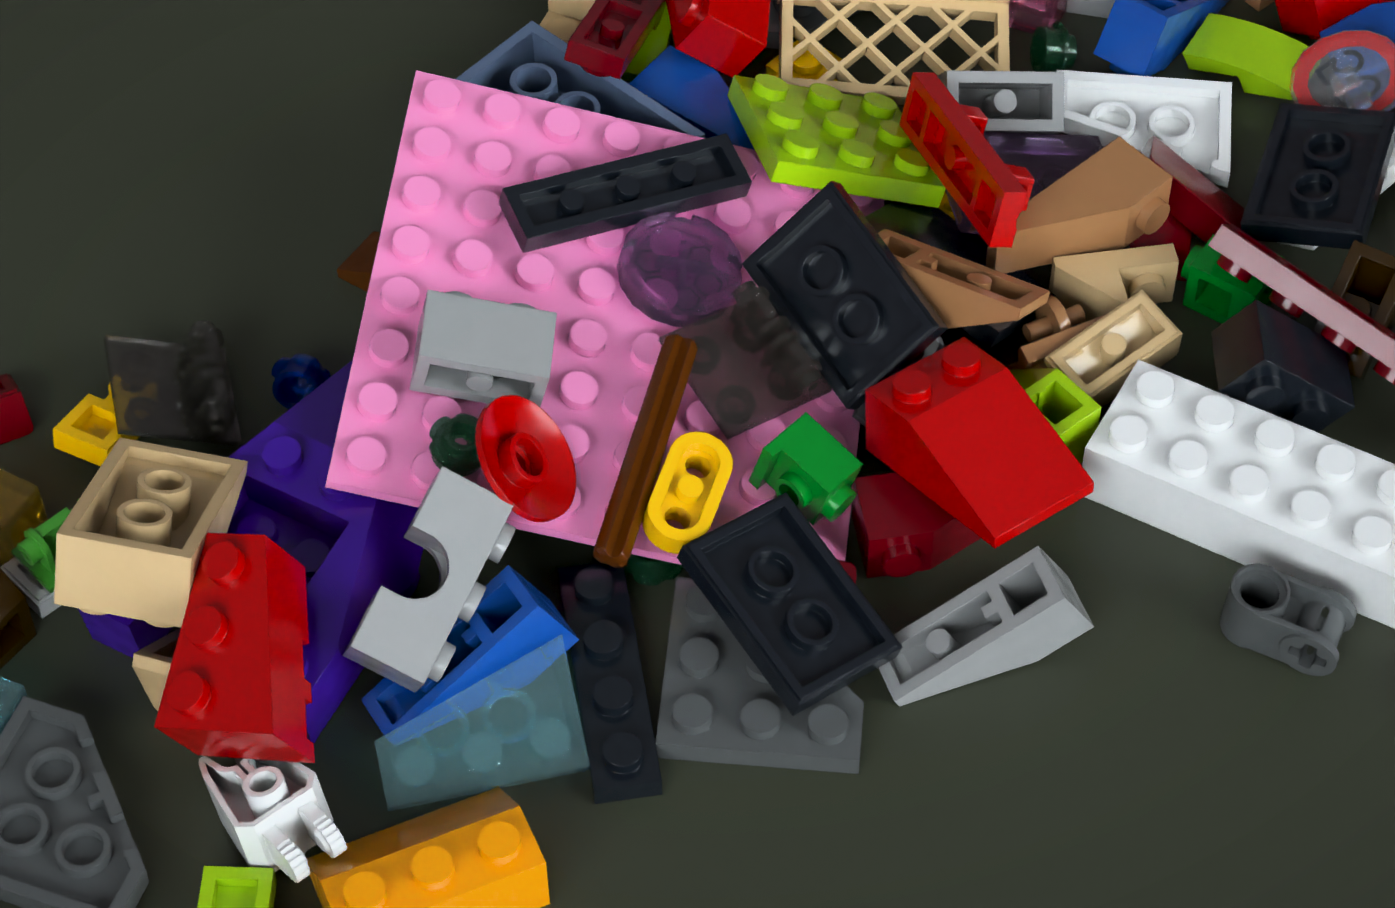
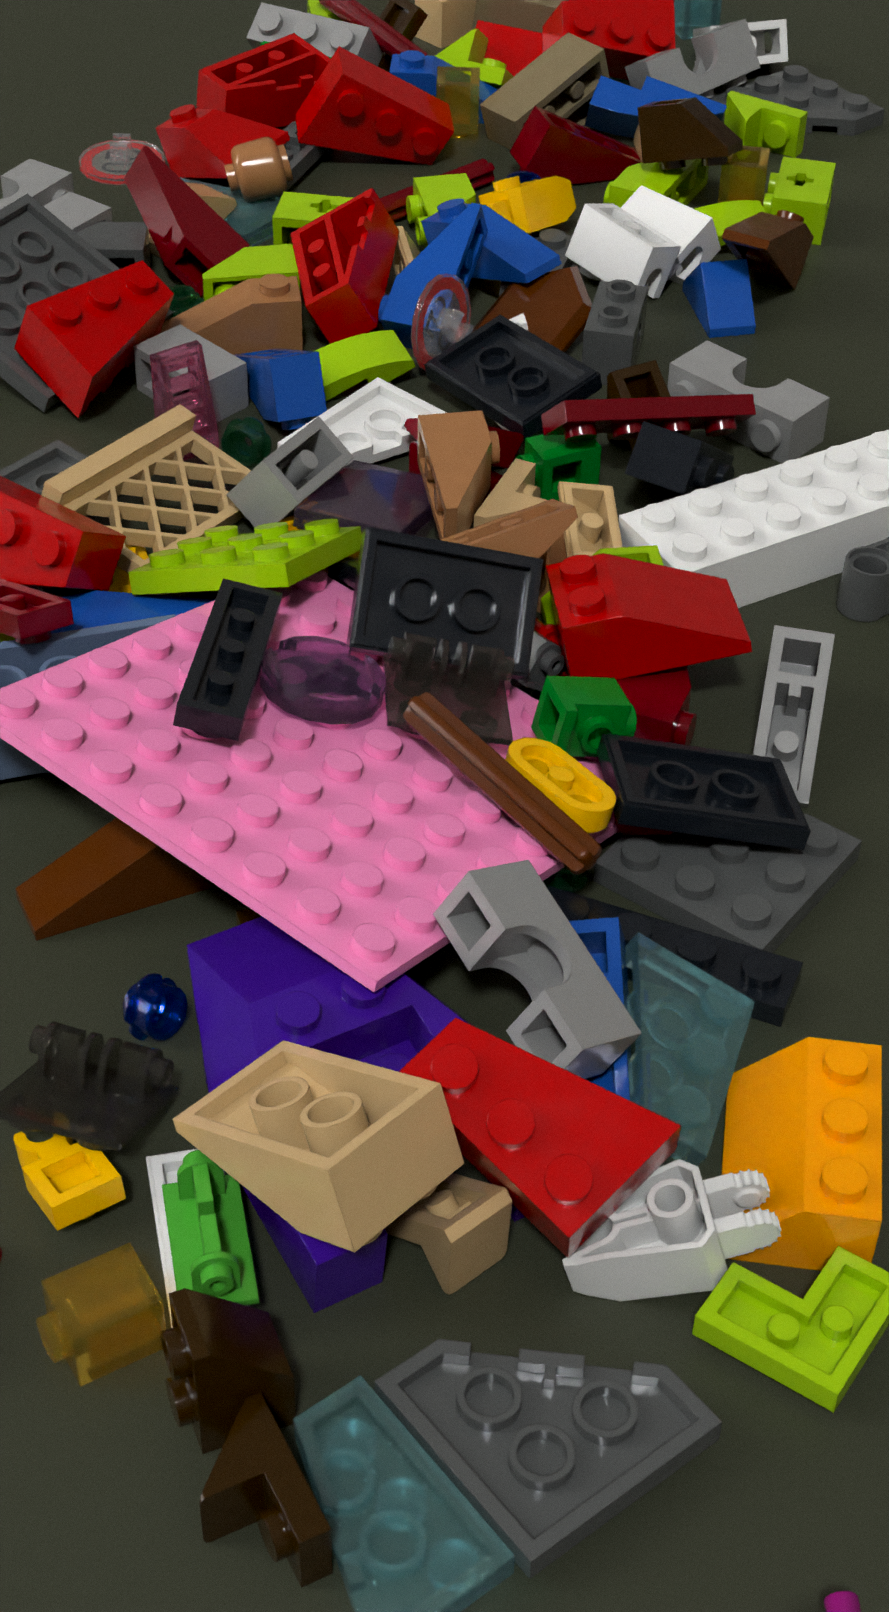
camera: 60 degrees left, 10 degrees down
(448, 453) = (417, 874): clear green plate -> none
(482, 348) = (337, 804): light grey brick -> none
(525, 458) = (465, 847): red dish -> none
(963, 159) = (370, 485): red hinge -> none

